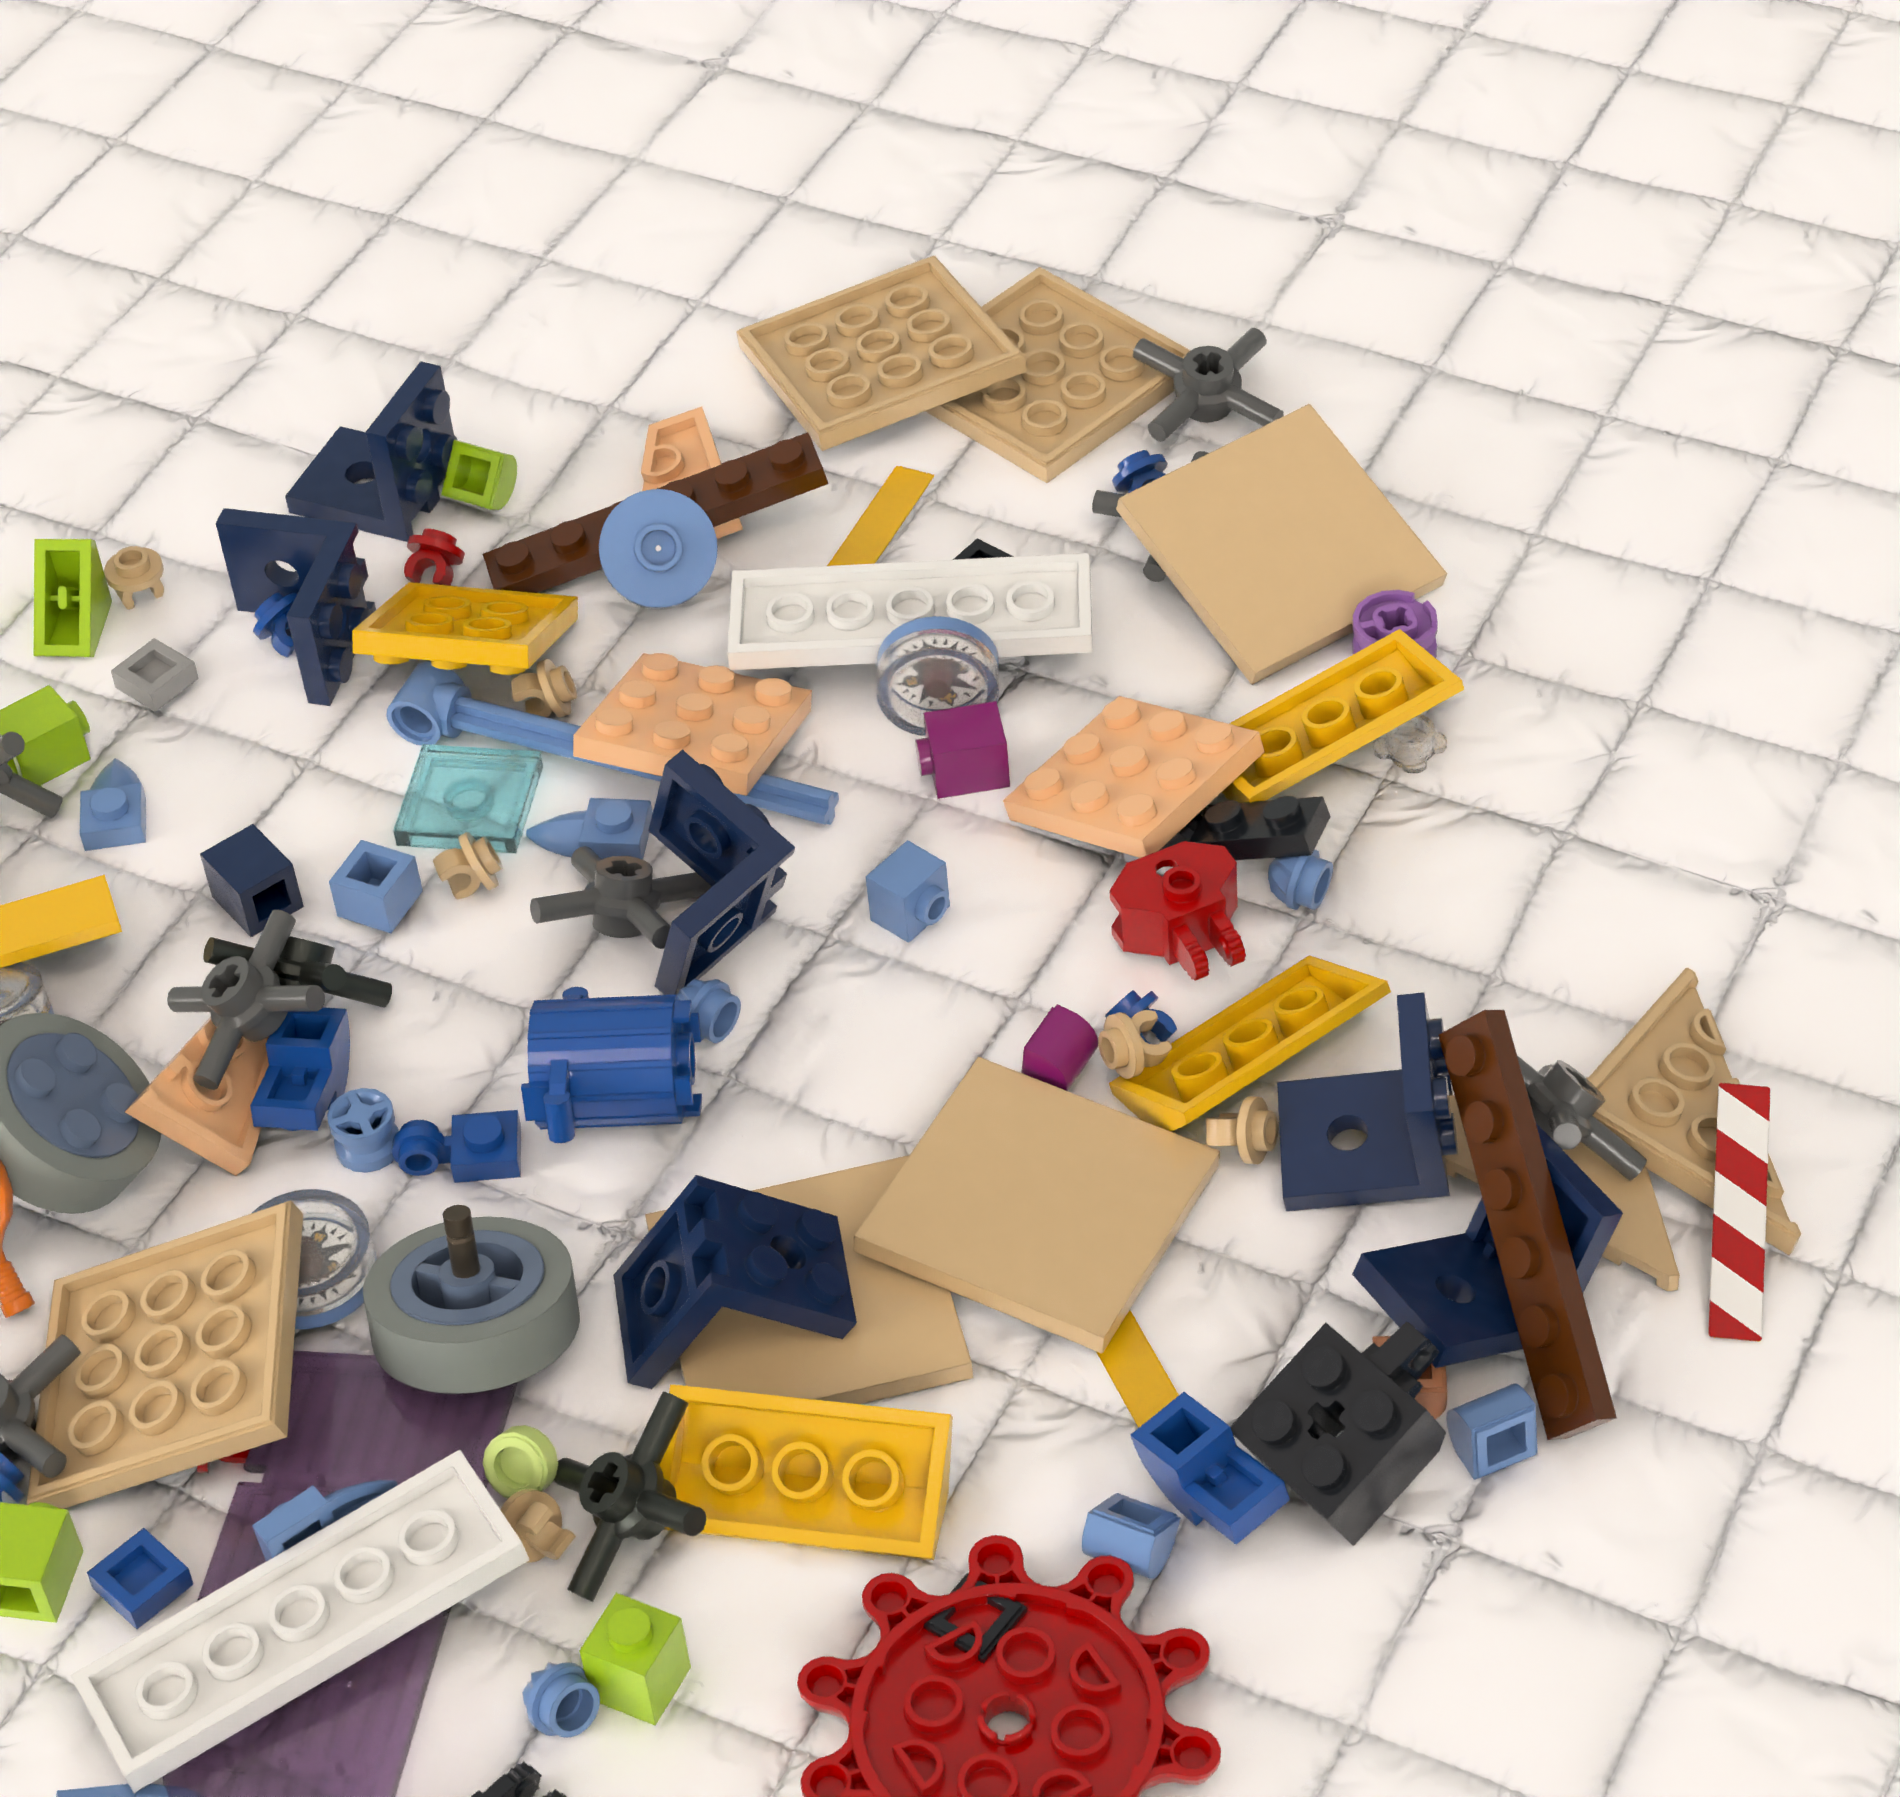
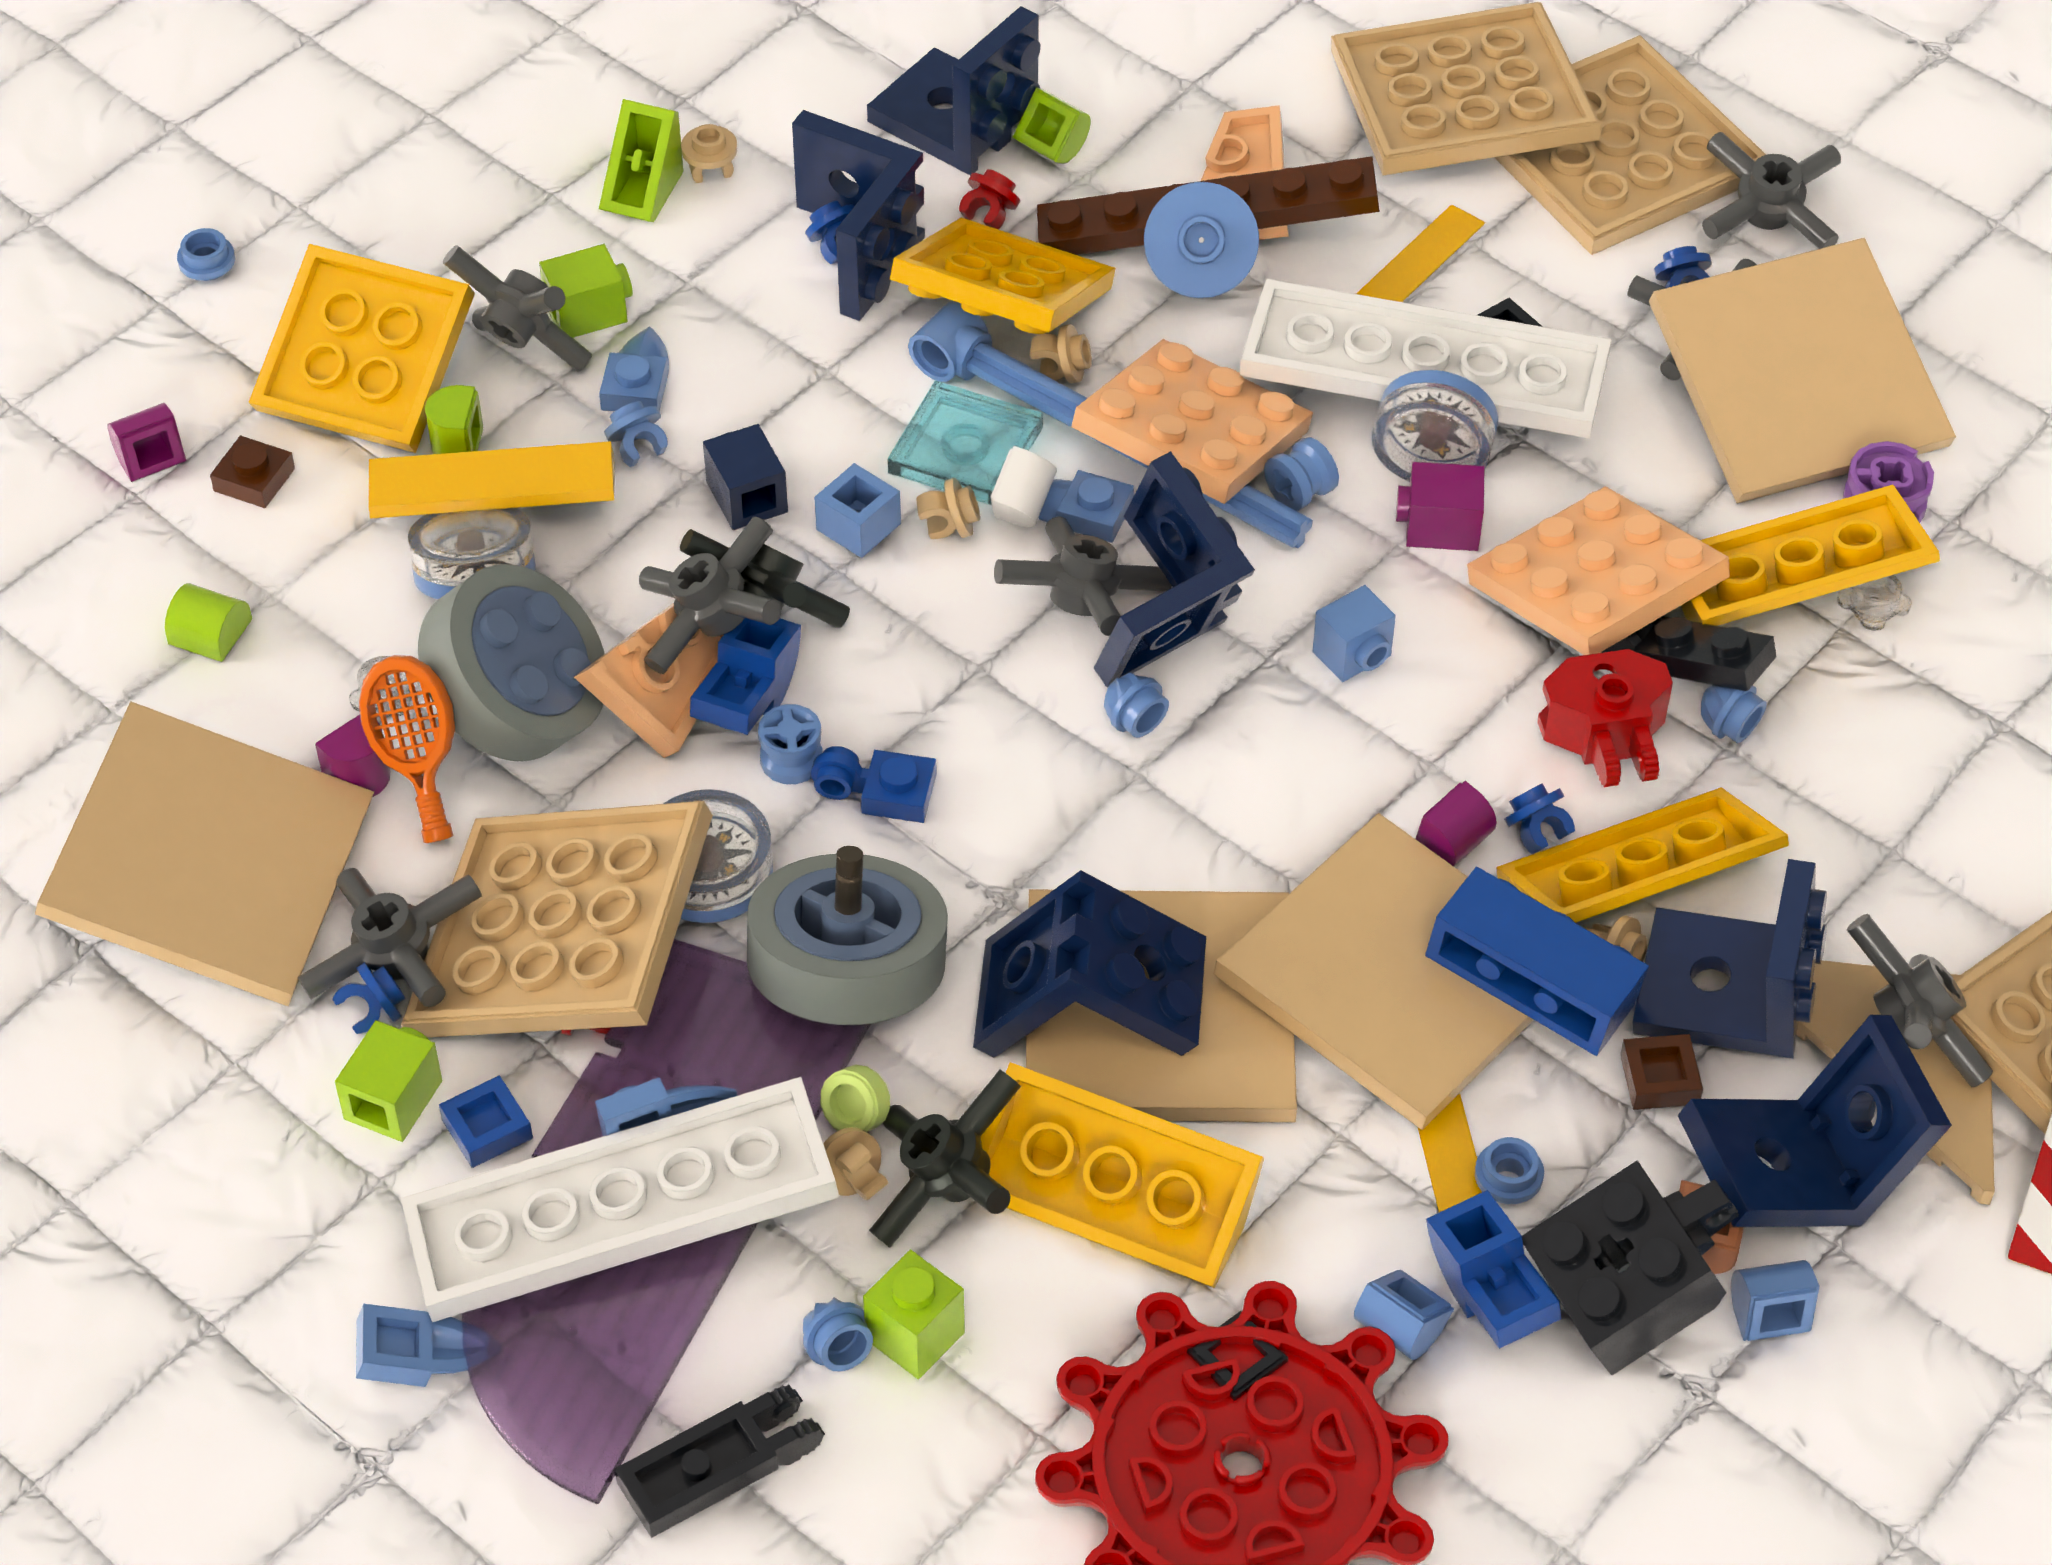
camera: 10 degrees right, 5 degrees up
(125, 853) = (635, 423): none -> medium blue plate
(154, 674) = (704, 254): light grey plate -> none
(538, 826) = (1022, 487): none -> white brick
(610, 1062) = (1031, 735): blue container -> none
(816, 750) = (1301, 473): none -> medium blue wheel
(1125, 1049) = (1518, 835): tan plate -> none
(1173, 1159) = (1536, 960): none -> blue brick
(1200, 1356) = (1513, 1156): none -> medium blue plate
(1323, 1238) = (1661, 1071): none -> reddish brown plate
(1527, 1226) = (1856, 1112): reddish brown plate -> none

